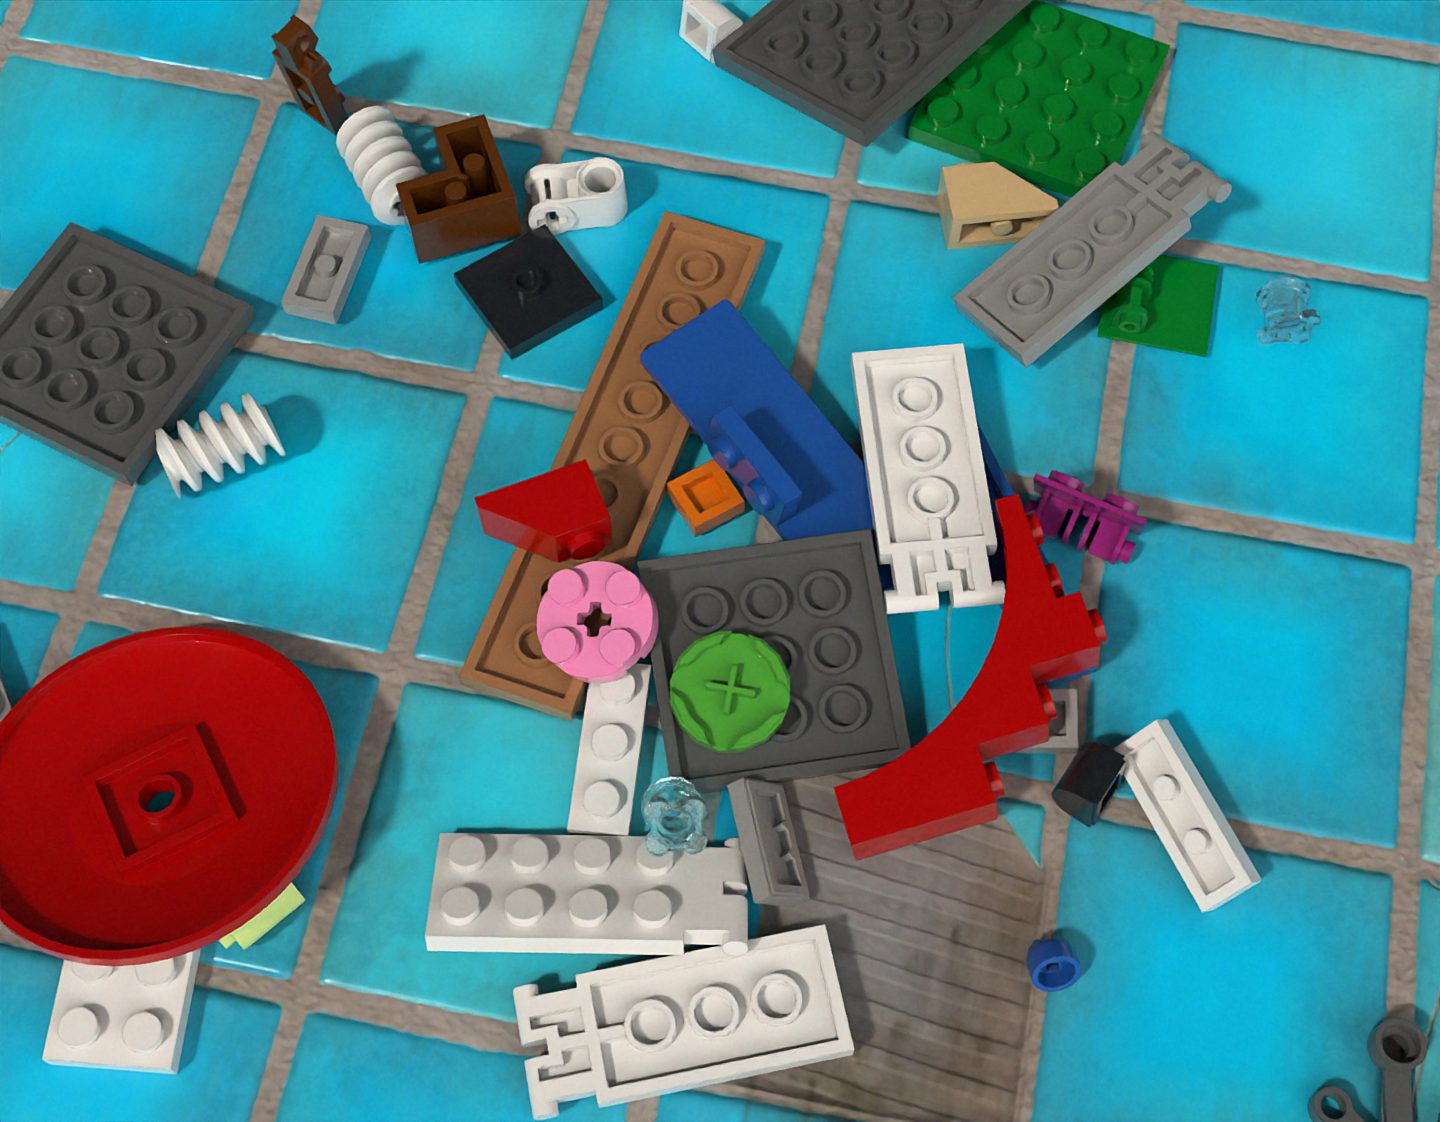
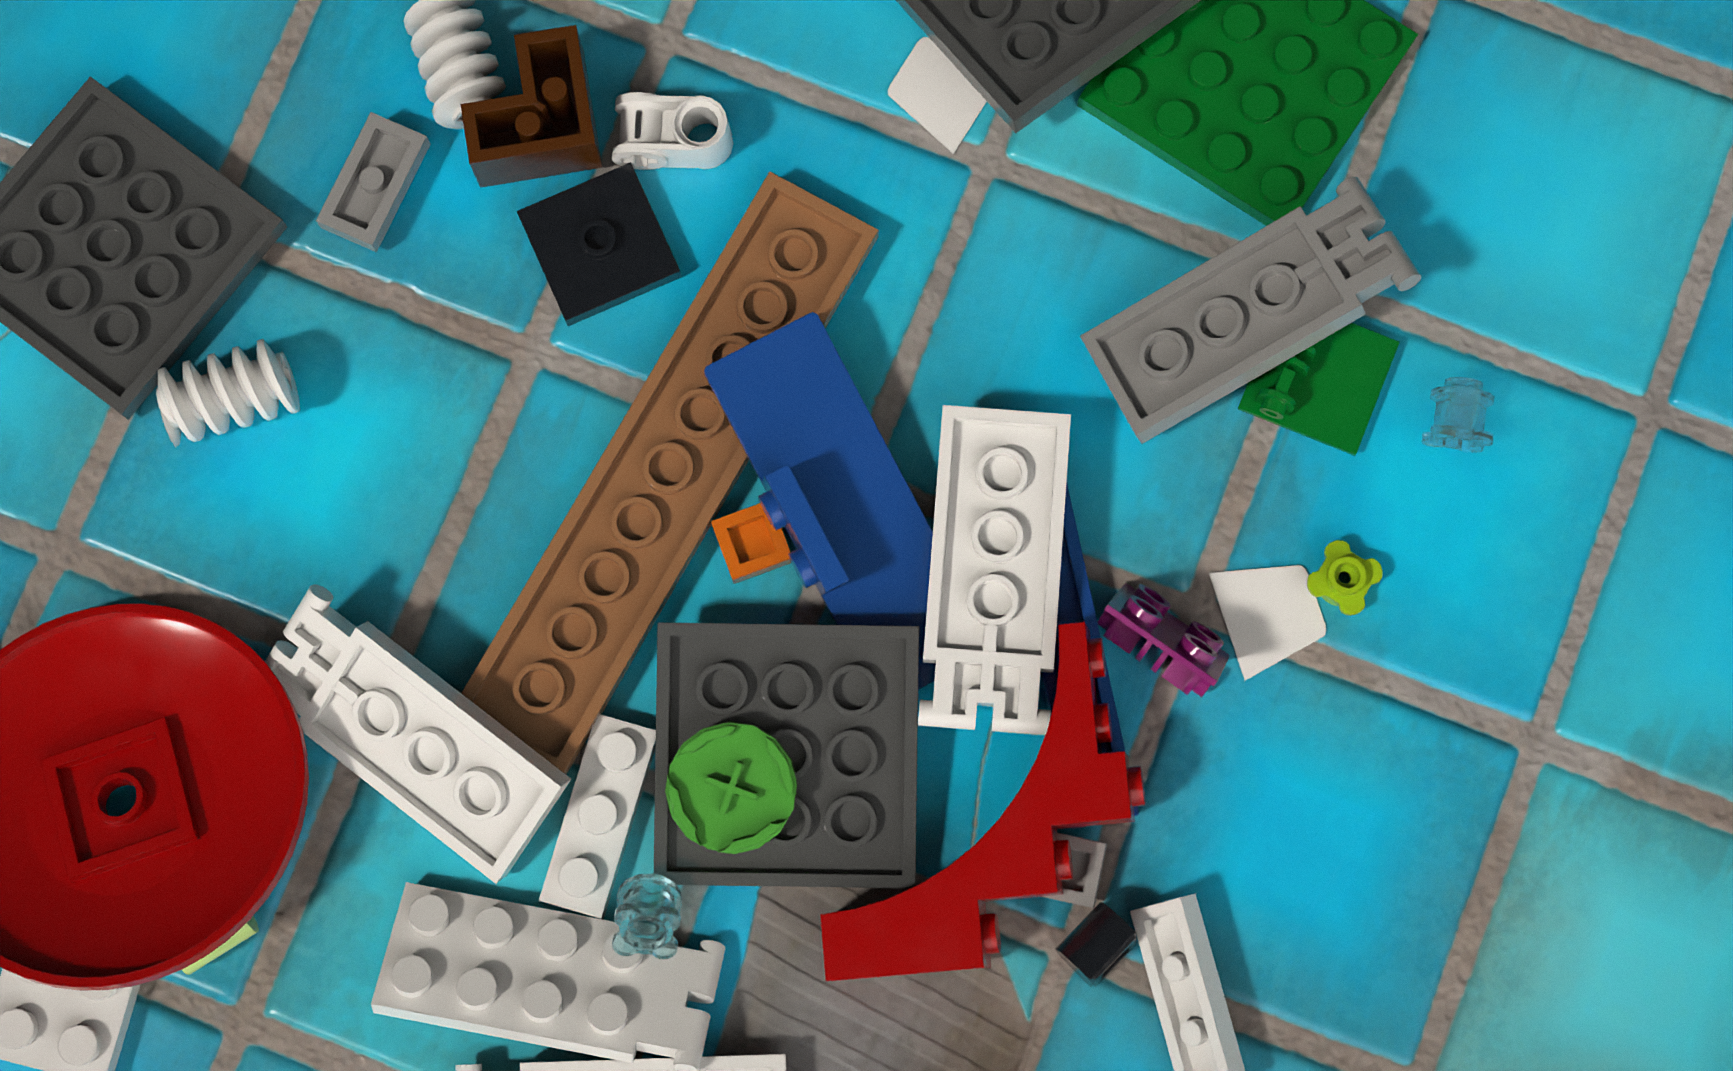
camera: 10 degrees right, 15 degrees up
(432, 700) = (414, 736): none -> white hinge
(550, 514) = (576, 549): red slope -> none
(573, 597) = (569, 701): bright pink plate -> none
(768, 842) = (744, 953): light grey plate -> none
(793, 143) = (936, 94): none -> white sticker
(988, 205) = (1148, 223): tan slope -> none
(1168, 492) = (1267, 614): none -> white sticker
(1222, 463) = (1326, 581): none -> lime plate

